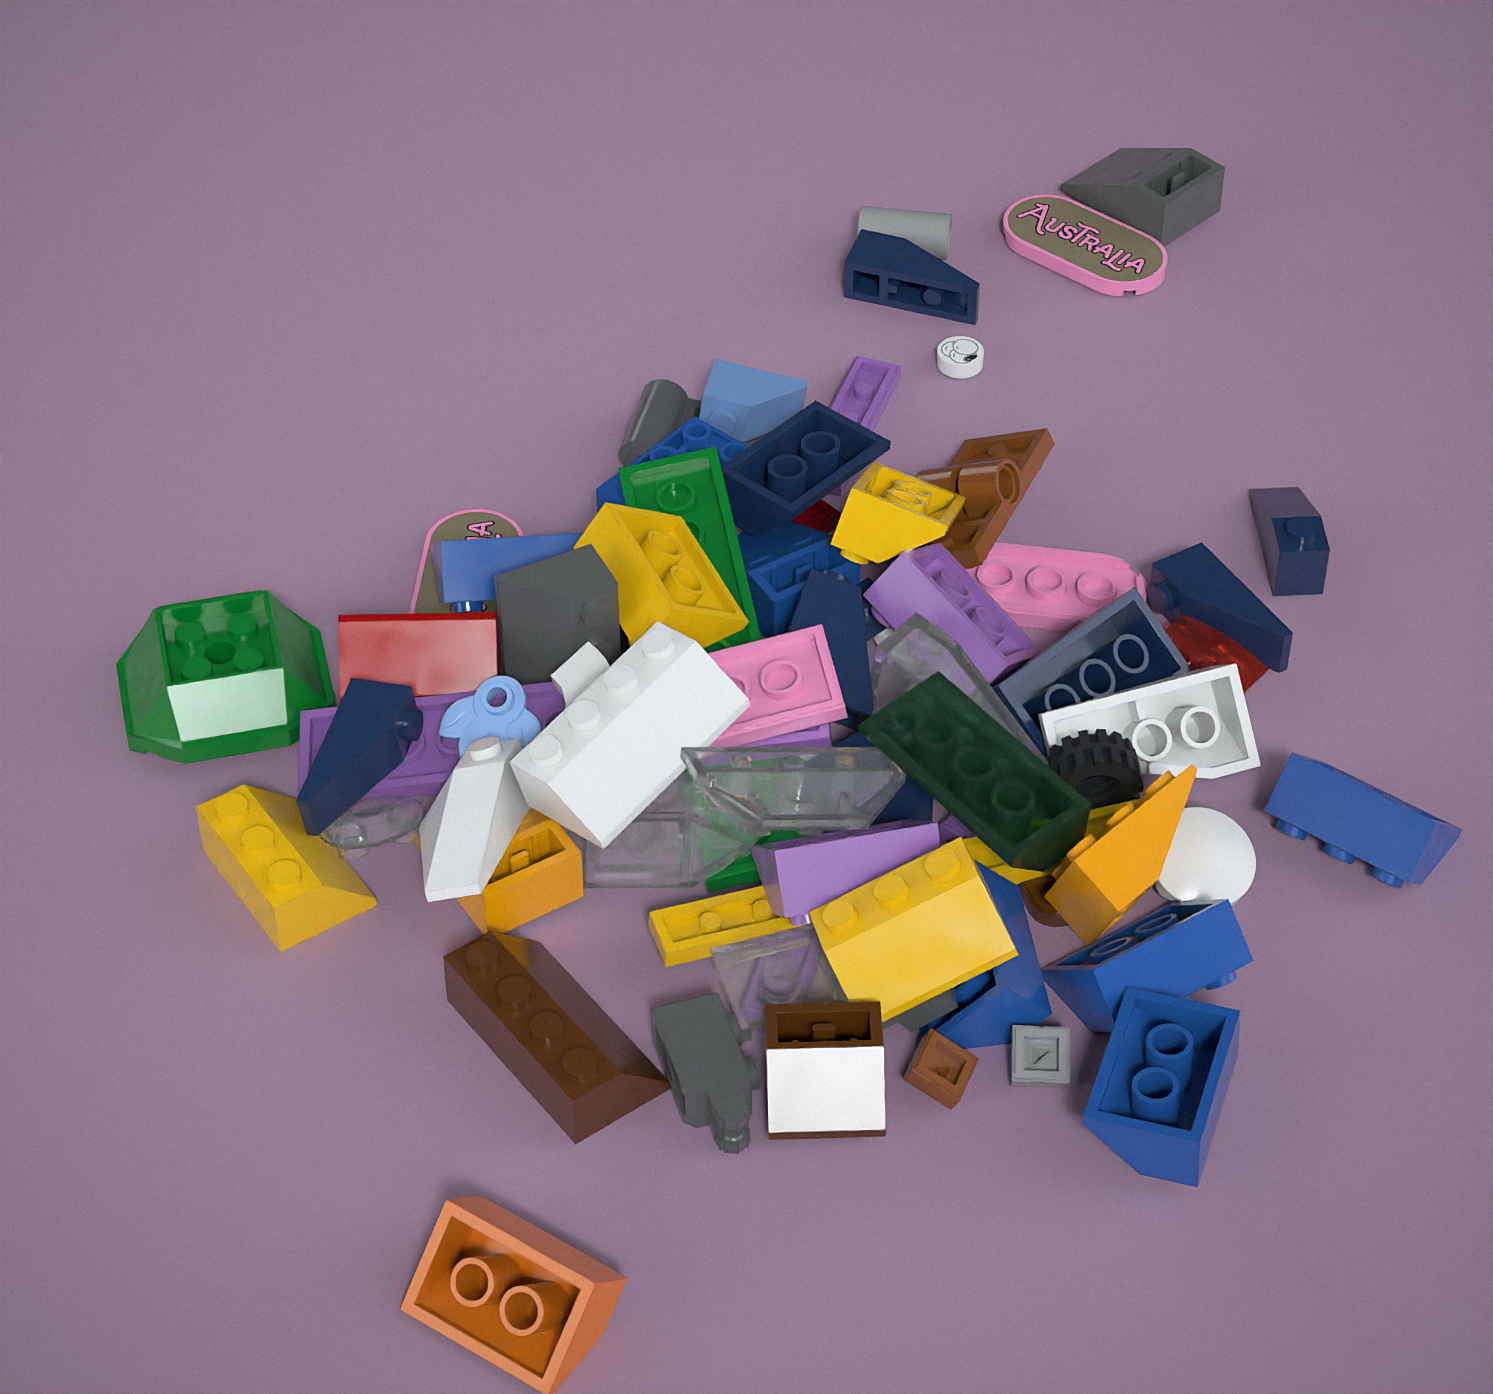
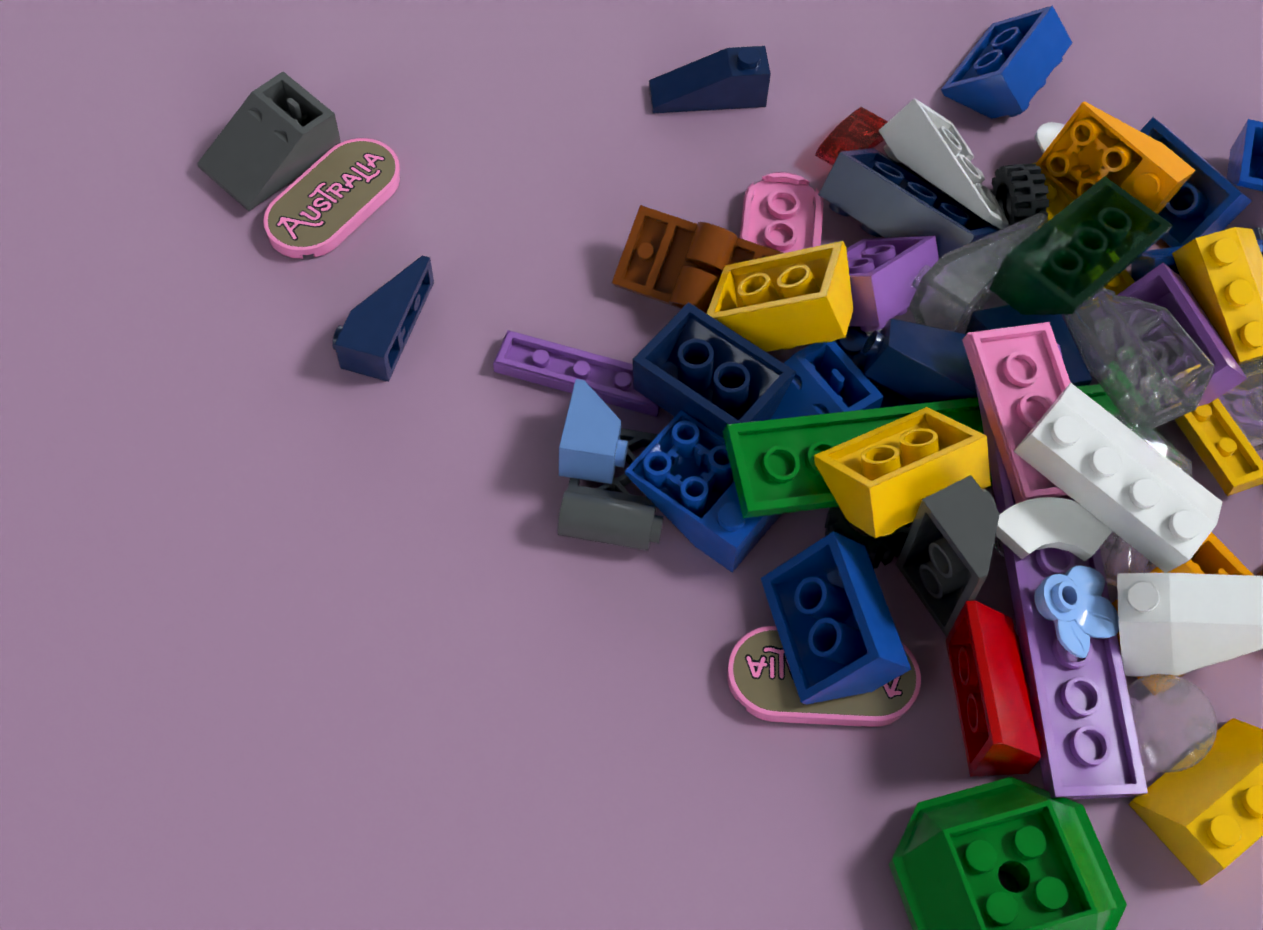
camera: 95 degrees left, 15 degrees up
(359, 749) = (1125, 719): dark blue slope -> none
(925, 229) = (316, 322): light grey pin -> none
(960, 357) = (489, 289): white tile -> none
(1206, 590) = (792, 135): dark blue slope -> none

